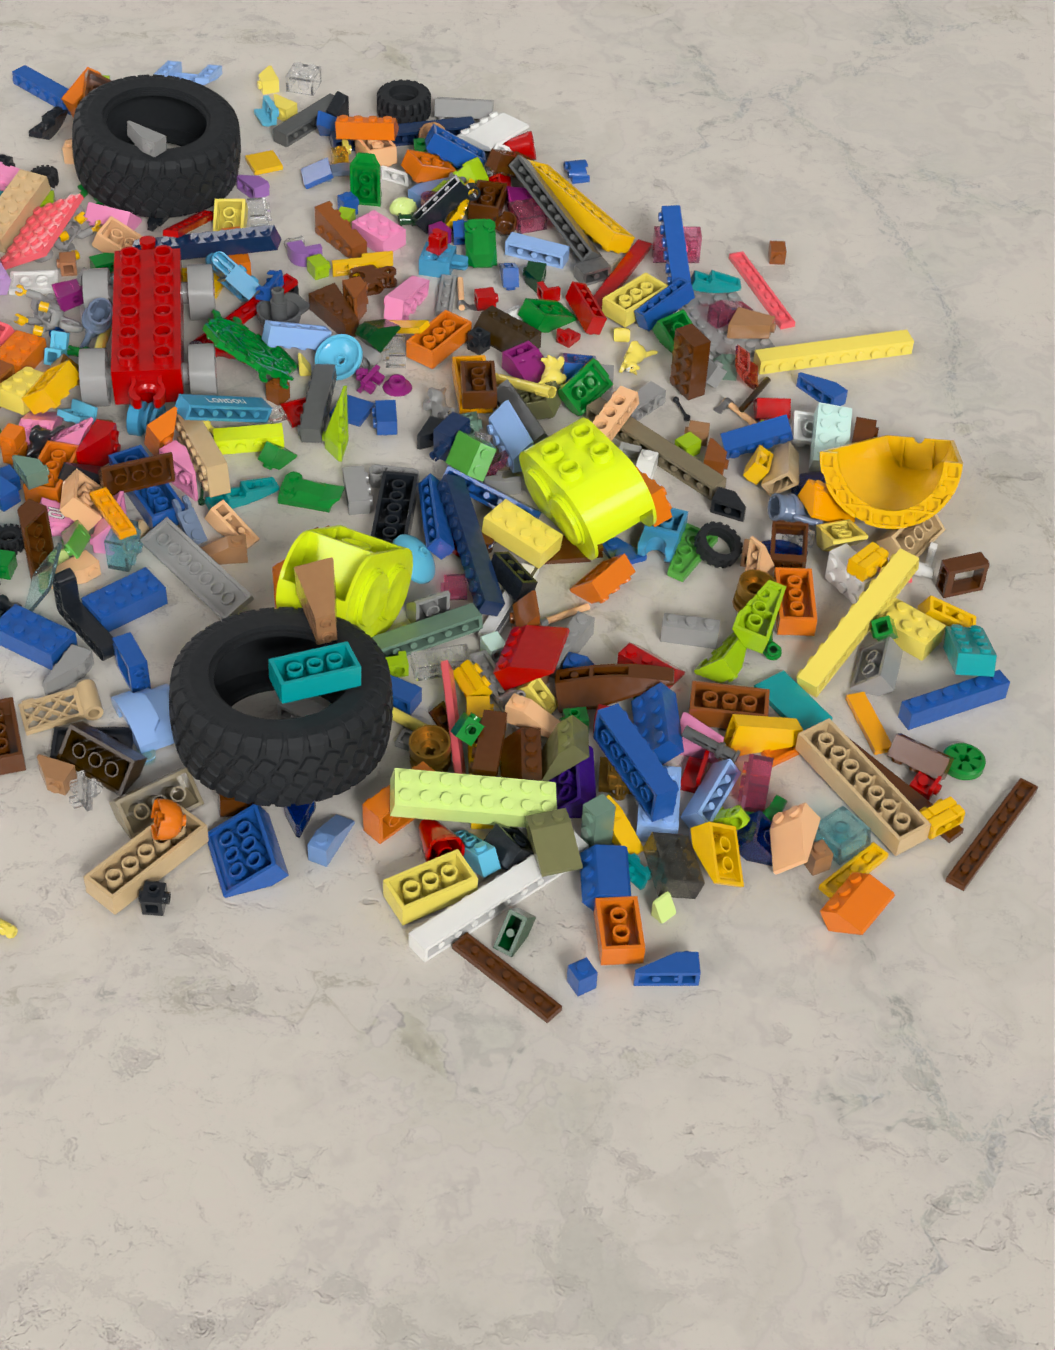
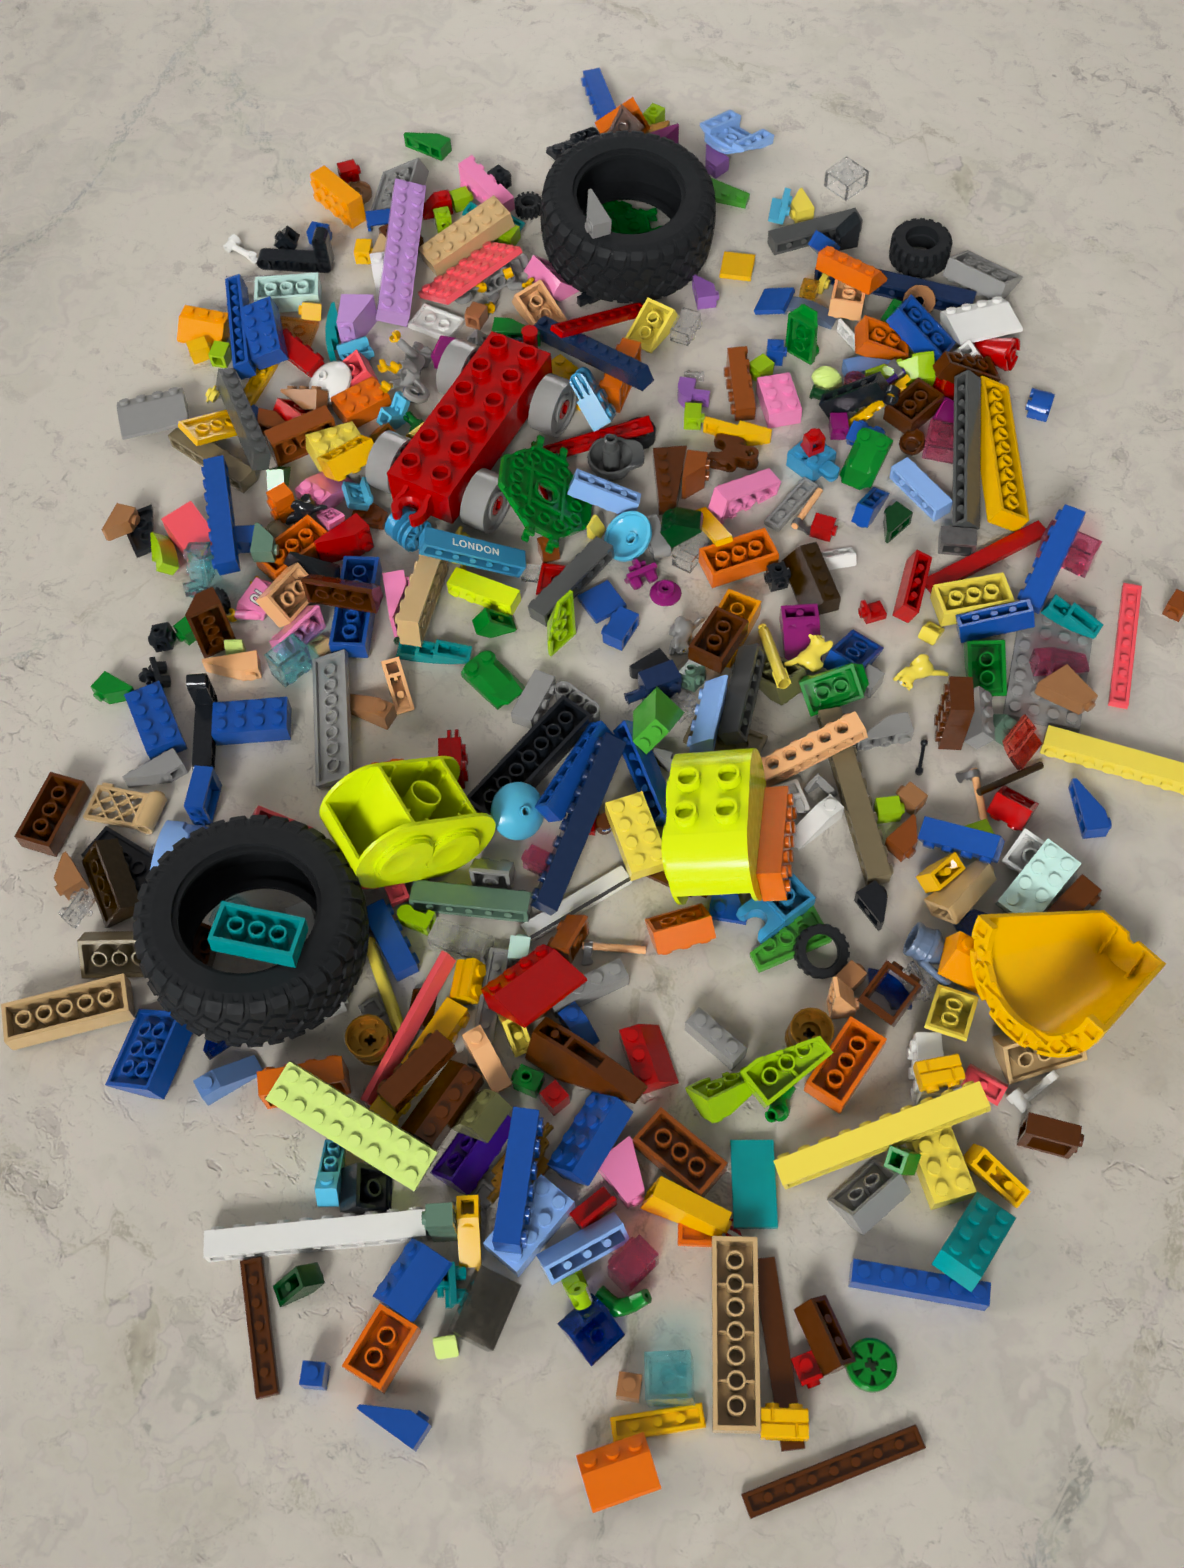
camera: 40 degrees right, 15 degrees up
(43, 579) = (187, 671): clear light blue piece -> none
(75, 539) = (252, 636): bright green slope -> none
(96, 319) = (433, 395): sand blue piece -> none
(112, 513) = (290, 627): light orange tile -> none
(154, 898) = (45, 1056): black brick -> none
(160, 431) = (399, 555): orange slope -> none
(167, 819) = (91, 990): orange cylinder -> none
(189, 521) = (360, 664): sand blue hinge -> none
(268, 81) = (810, 168): light yellow slope -> none
(276, 281) = (622, 426): blue hinge -> none
(318, 597) = (324, 852): medium nougat slope -> none
(429, 887) = (261, 1190): light yellow brick -> none
(438, 839) = (302, 1150): red cone -> none
(468, 728) = (405, 1043): green brick -> none
(497, 463) = (674, 739): clear pink slope -> none
(504, 698) = (488, 1020): light grey arm -> none
(512, 575) = (589, 882): black brick -> none
(545, 314) = (869, 574): green slope -> none
(548, 293) = (890, 549): red panel -> none
(553, 842) = (389, 1217): olive slope -> none
(719, 749) = (623, 1204): dark grey pin -> none
(719, 852) = (532, 1325): yellow slope -> none
(792, 837) = (615, 1354): light nougat slope -> none
(869, 723) = (812, 1255): light orange tile -> none

